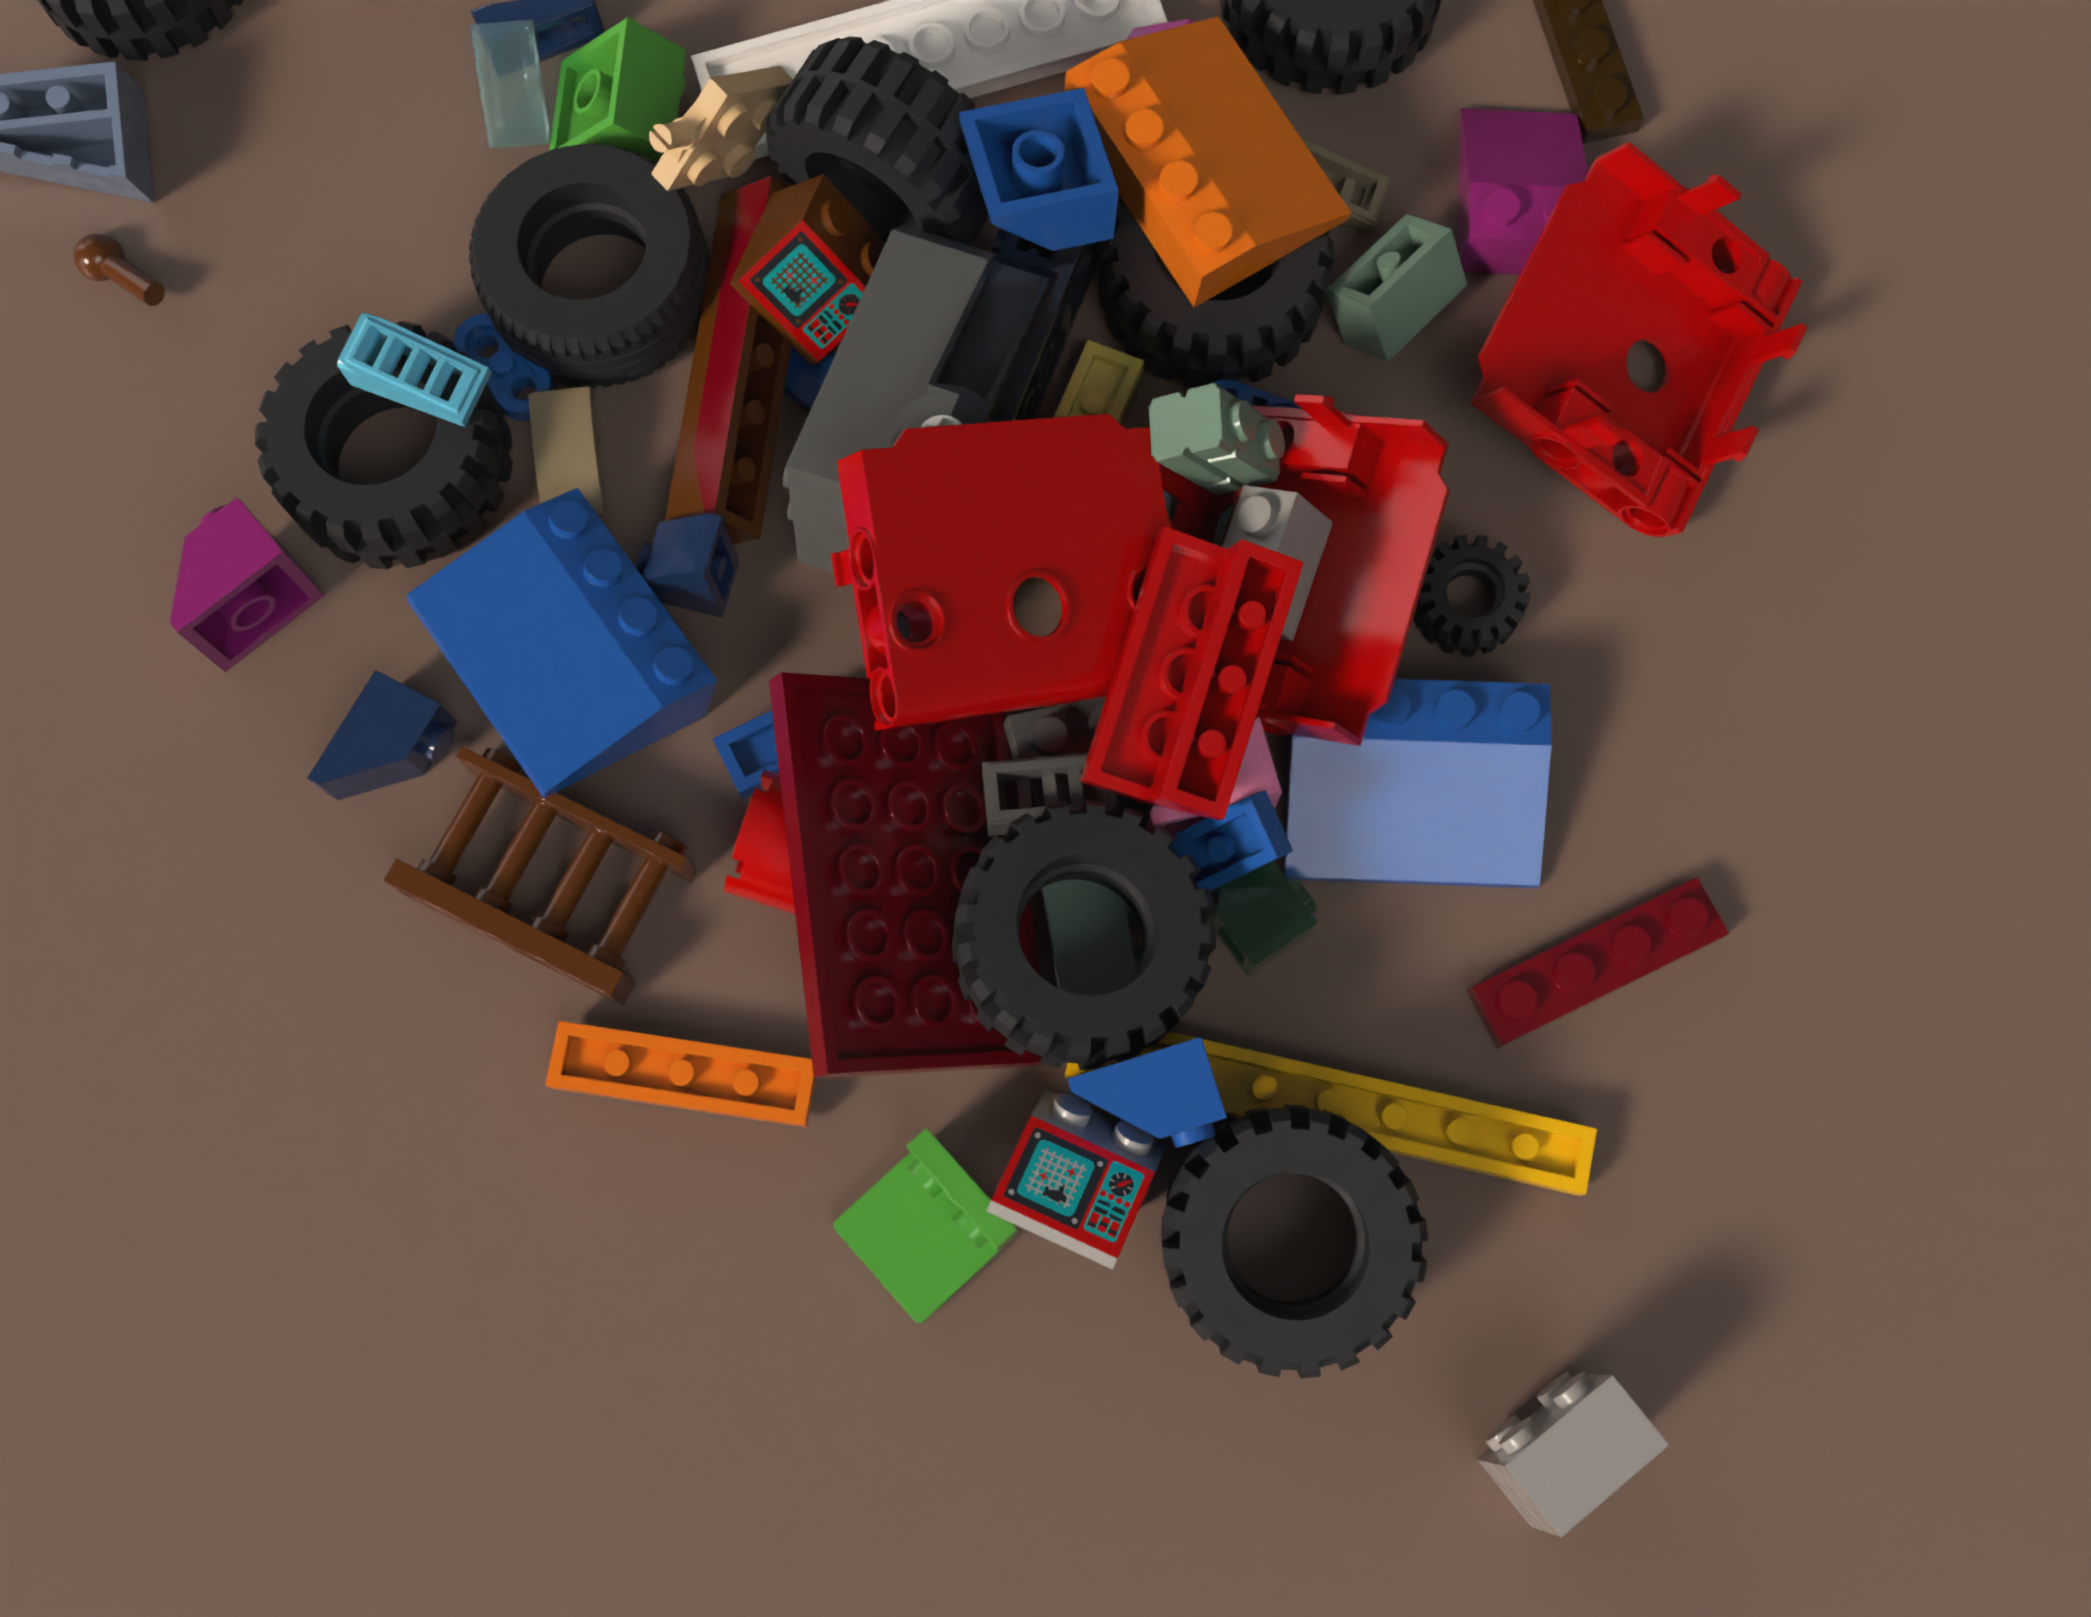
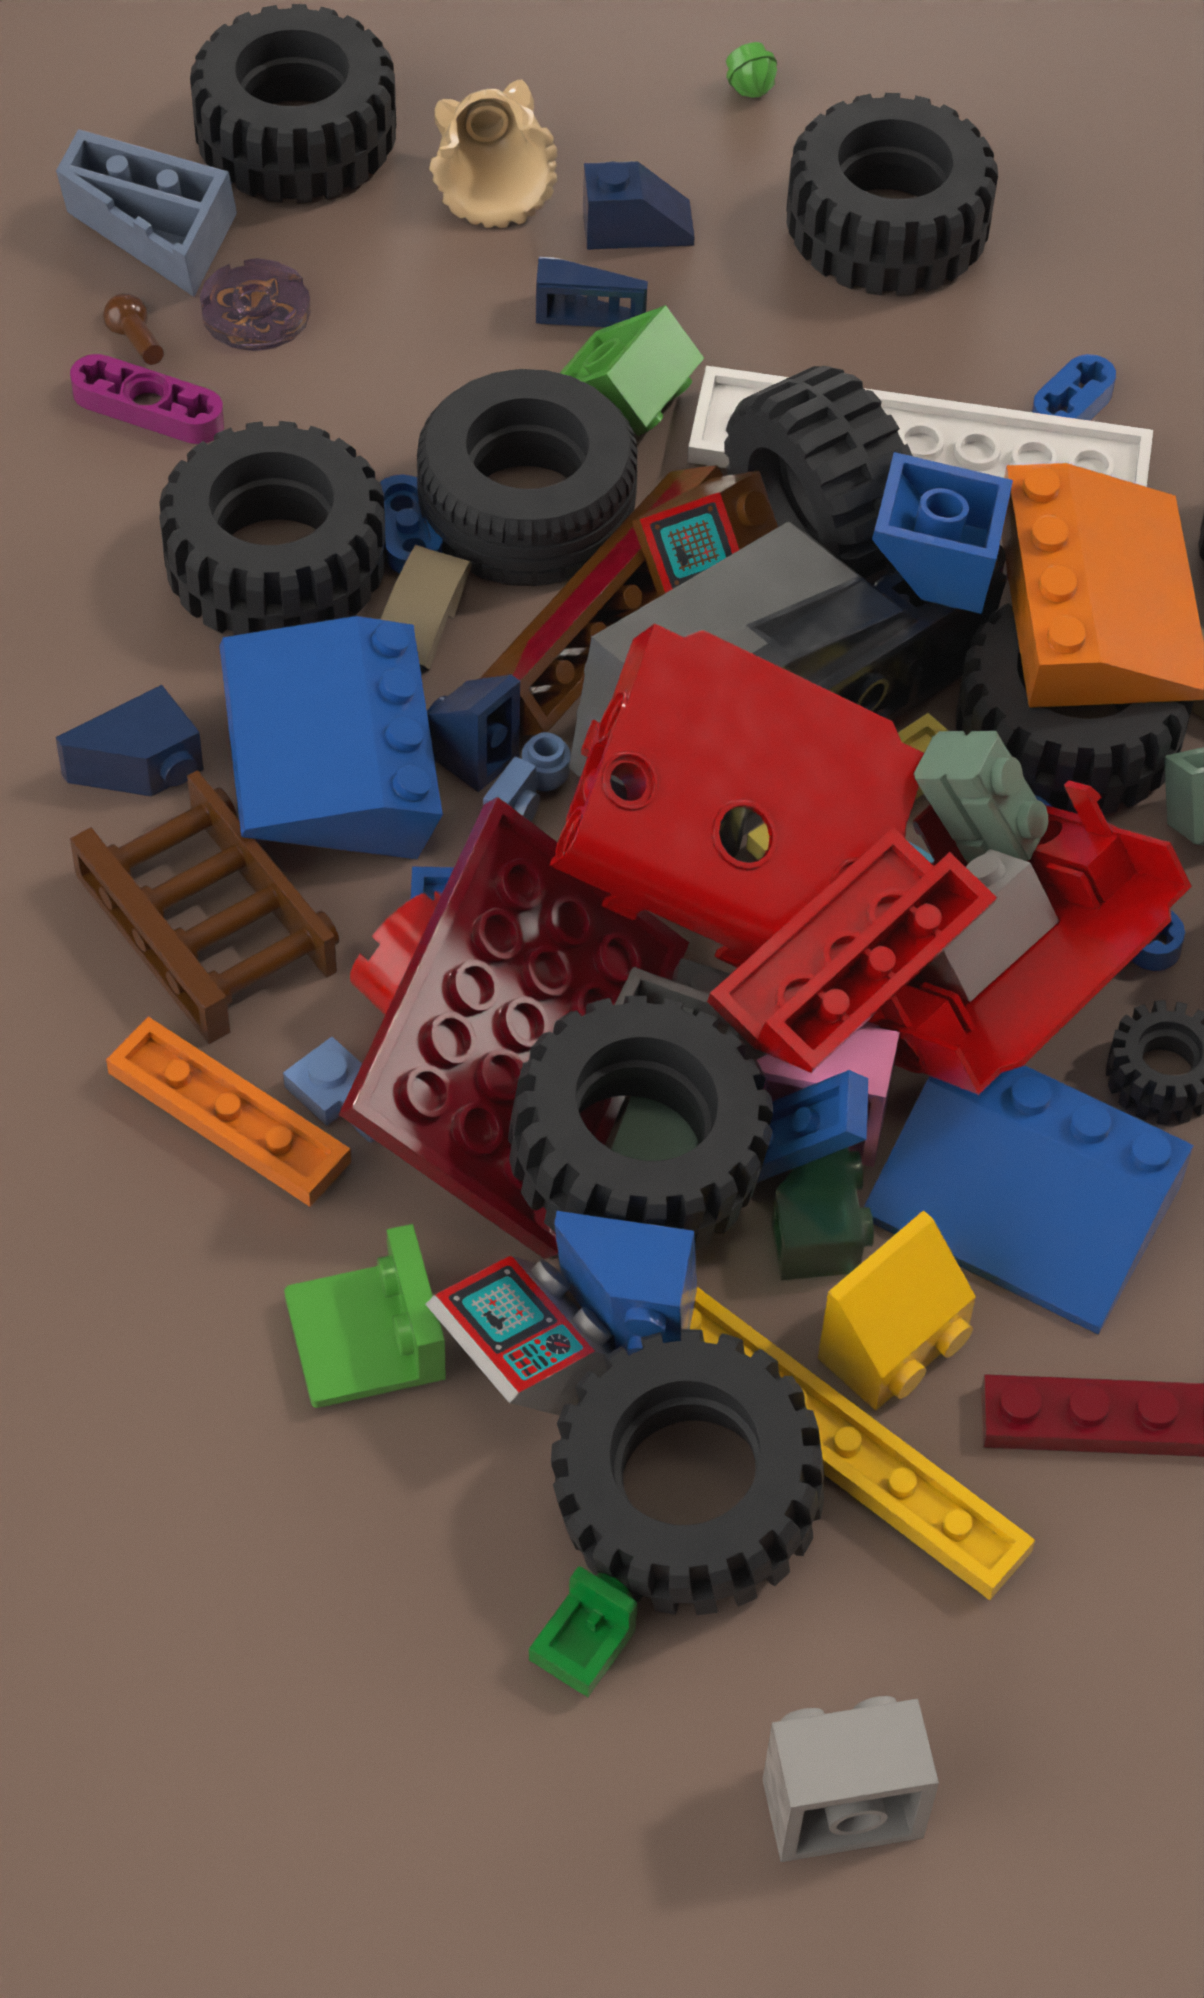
camera: 25 degrees right, 20 degrees down
(152, 330) = (111, 385): none -> magenta beam
(219, 185) = (255, 305): none -> tile
(236, 586) = (88, 578): magenta slope -> none
(375, 352) = (312, 437): medium azure slope -> none
(510, 83) = (541, 319): clear light blue tile -> none
(719, 129) = (686, 406): tan plate -> none
(759, 993) = (324, 1080): none -> medium blue plate
(765, 617) = (542, 768): none -> medium blue plate
(1272, 1422) = (586, 1631): none -> green bracket
(1382, 979) = (897, 1314): none -> yellow slope

